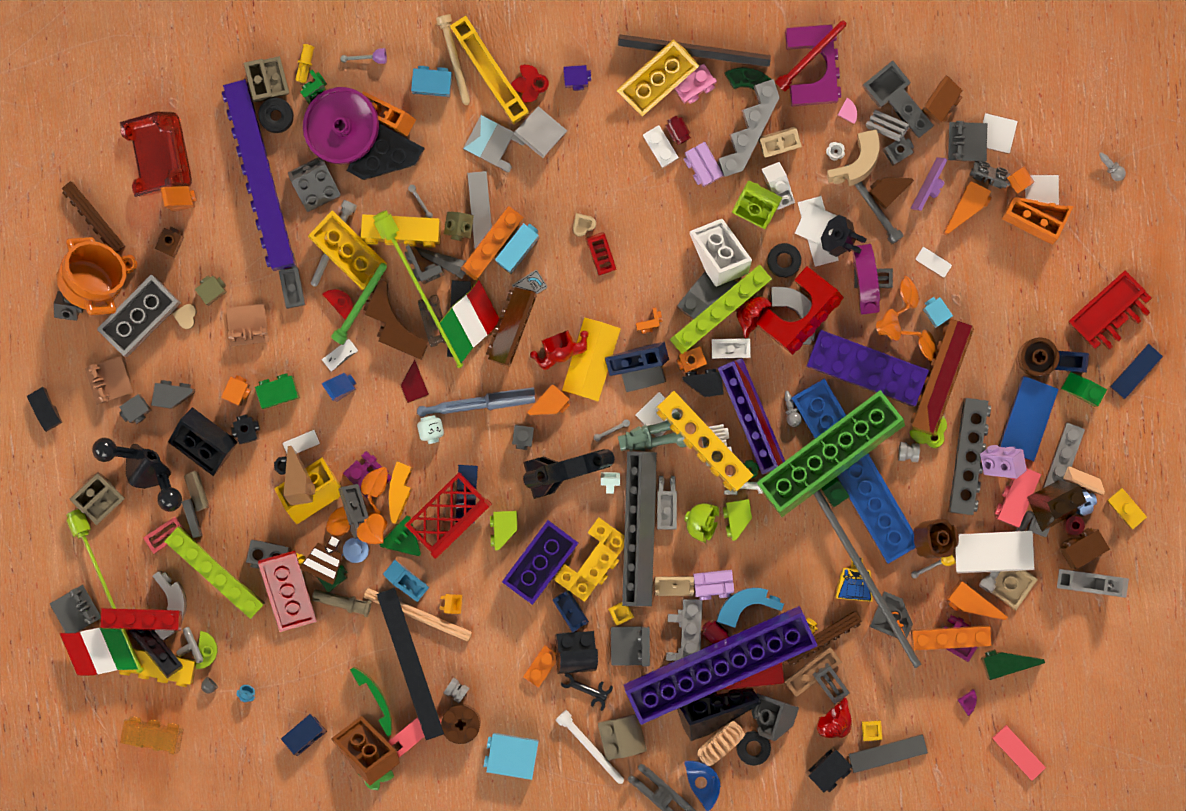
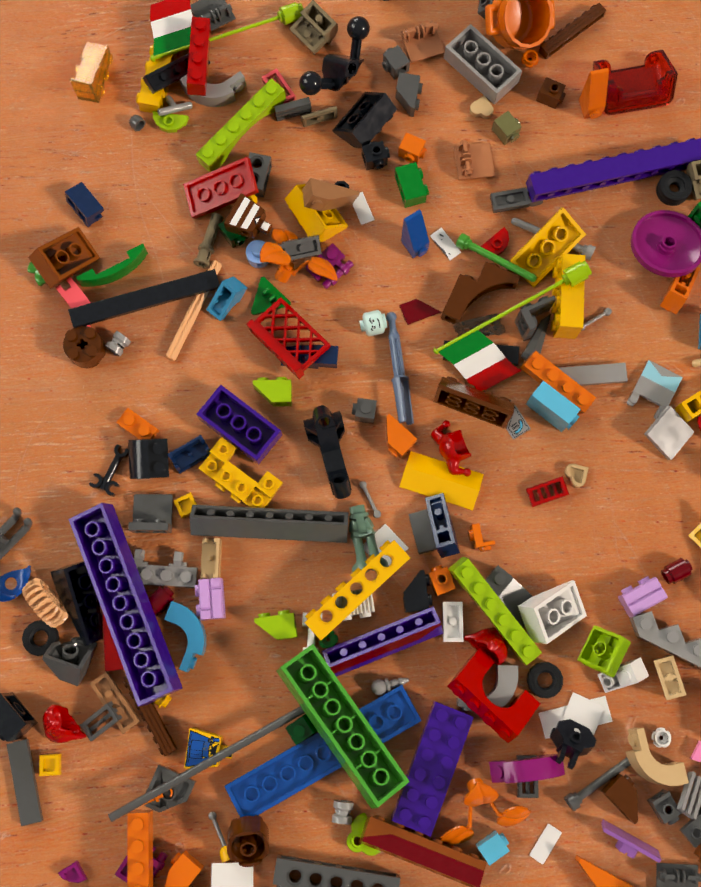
camera: 90 degrees right, 10 degrees down
(246, 693) = (131, 154): dark azure plate -> none
(314, 184) = (608, 220): dark grey bracket -> none
(387, 155) = (640, 286): black plate -> none
(398, 491) = (313, 290): light orange slope -> none
(453, 603) = (202, 341): light orange tile -> none
(458, 225) = (574, 352): olive brick -> none
(511, 755) = (50, 395): medium azure brick -> none
(566, 720) = (81, 449): white piece -> none
(610, 480) = (319, 496): light aqua tile -> none
(622, 737) = (59, 503): dark tan brick -> none
(660, 146) = (658, 553): white plate -> none
(667, 506) = (292, 553): light grey hinge -> none
(701, 521) = (275, 587): lime cylinder -> none

